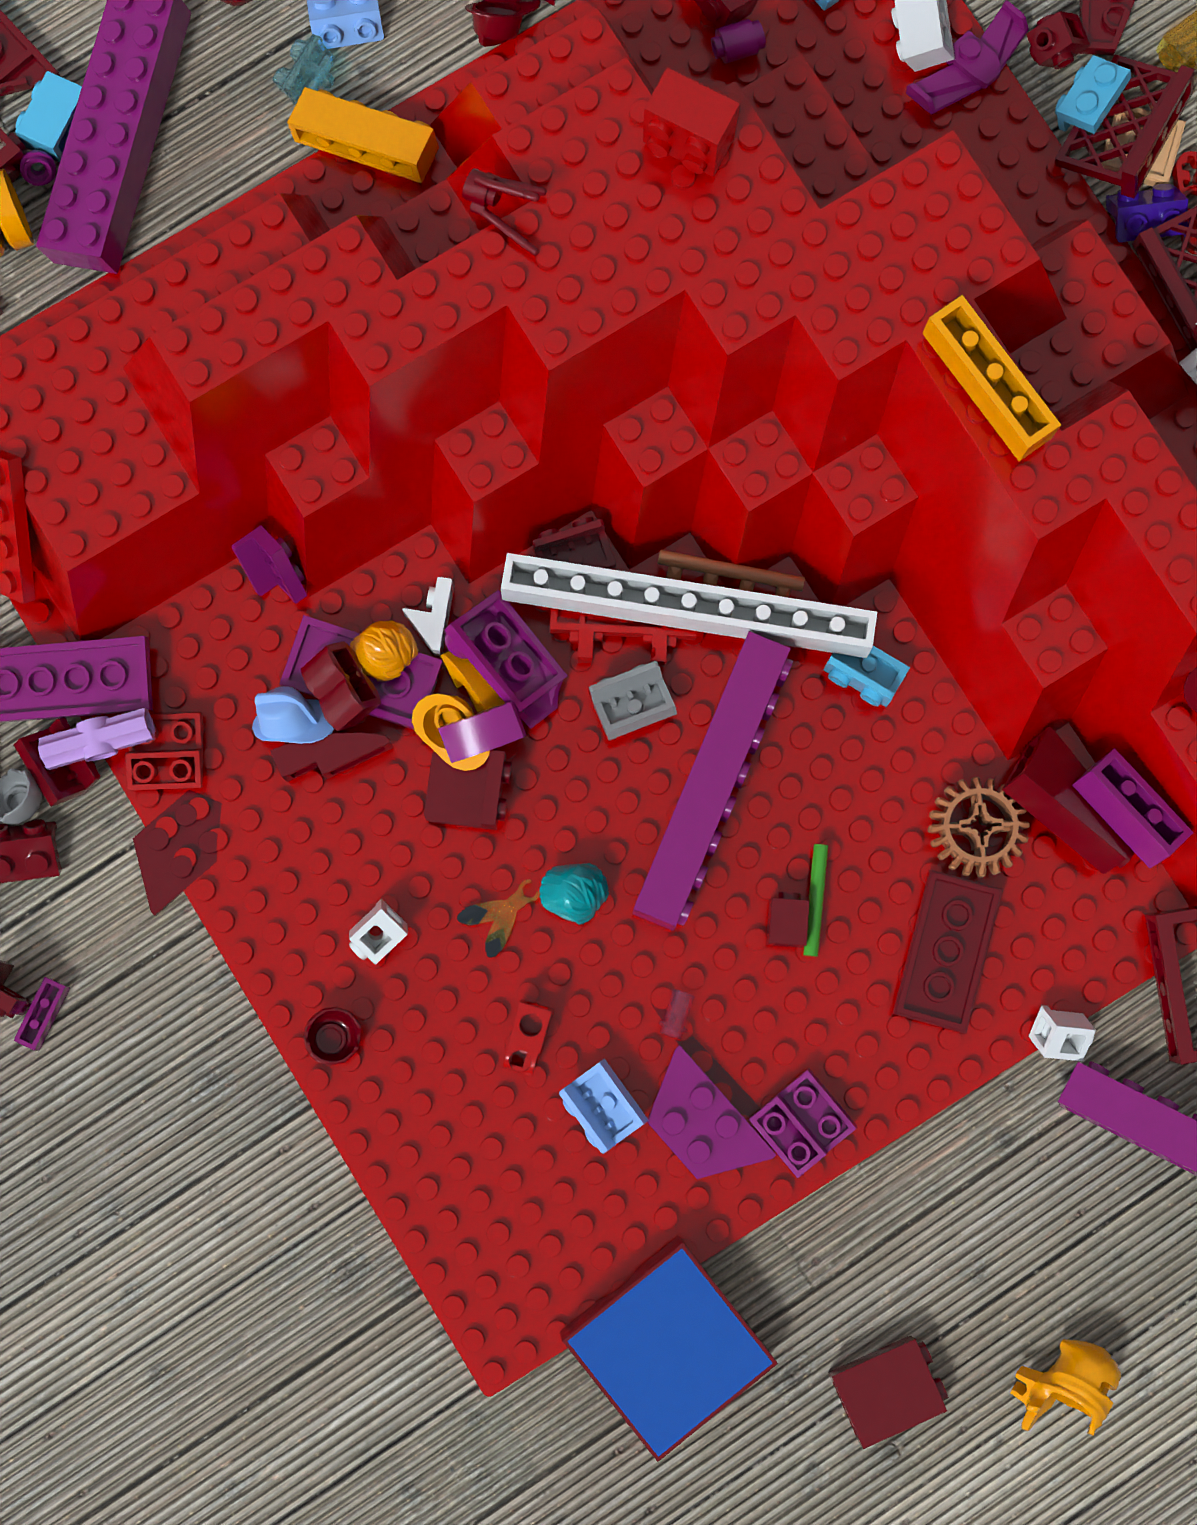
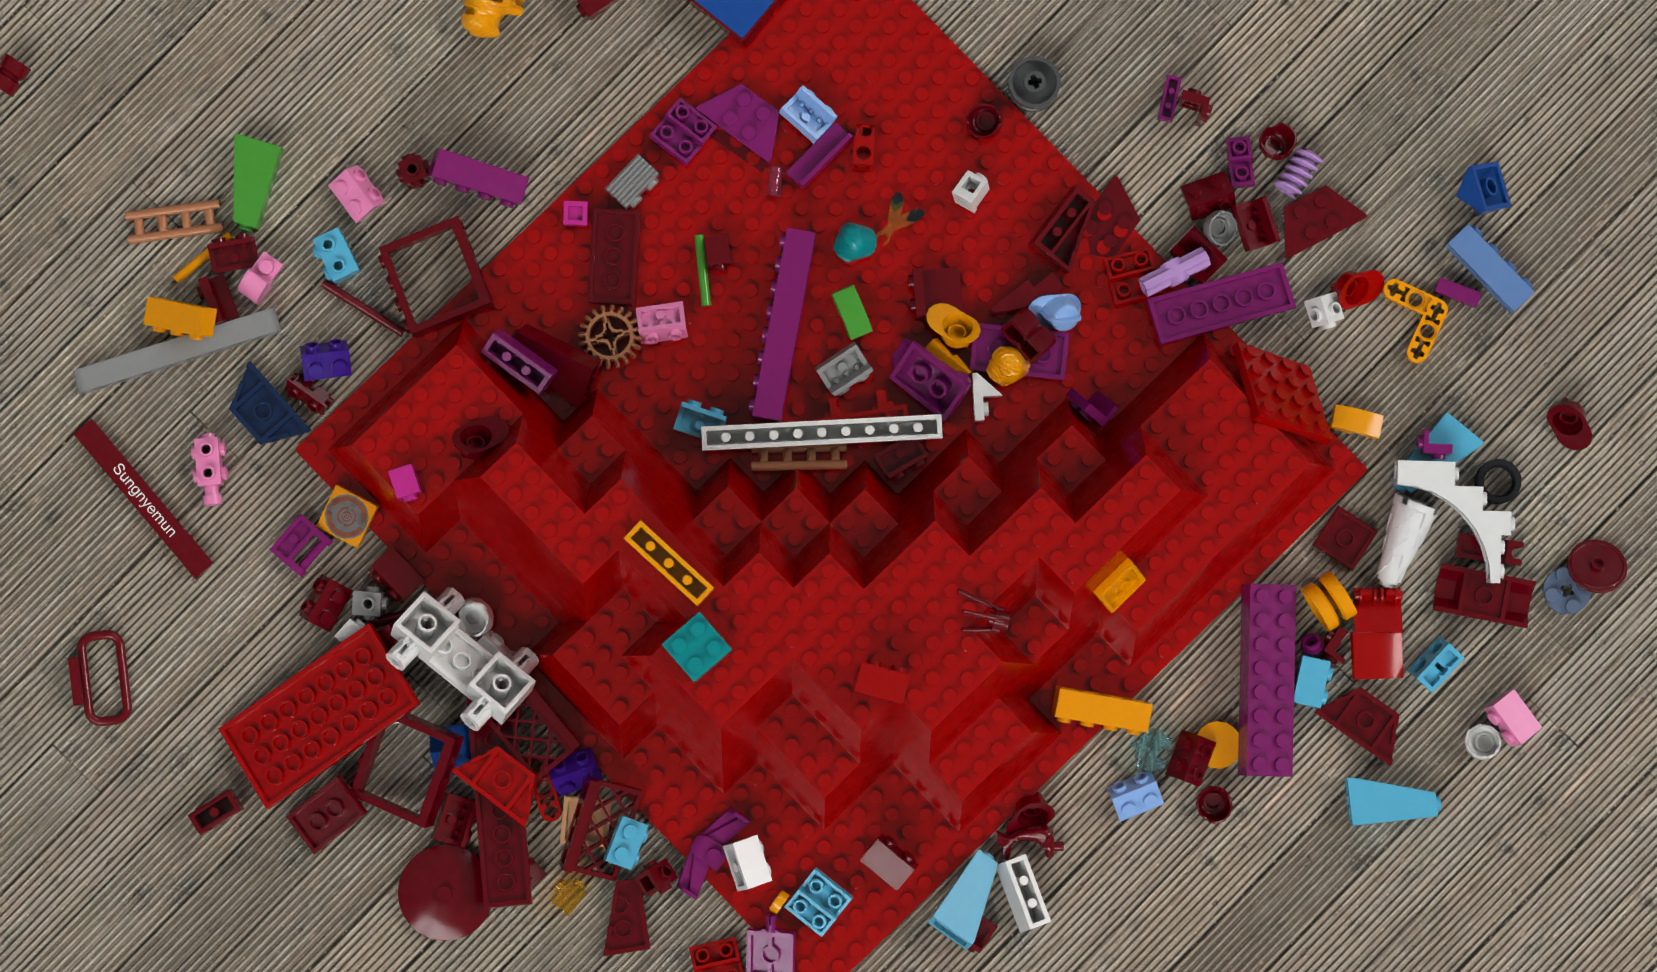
camera: 170 degrees right, 5 degrees up
(210, 62) = (1226, 741): none -> light orange tile
(220, 1076) = (1034, 70): none -> dark grey wheel
(248, 842) = (1063, 229): none -> dark red wedge
(253, 47) = (1190, 758): none -> dark red bracket
(285, 247) = (1119, 585): none -> light orange tile
(482, 731) = (933, 324): magenta slope -> none
(599, 1039) = (819, 155): none -> magenta panel
(602, 786) = (852, 312): none -> bright green slope
(738, 41) = (868, 827): magenta brick -> none
(895, 832) = (661, 322): none -> bright pink bracket
(897, 1058) = (633, 182): none -> light grey brick
(970, 243) = (697, 647): none -> teal brick
(995, 1029) = (575, 213): none -> dark pink plate
(1062, 1034) = (533, 219): white brick -> none

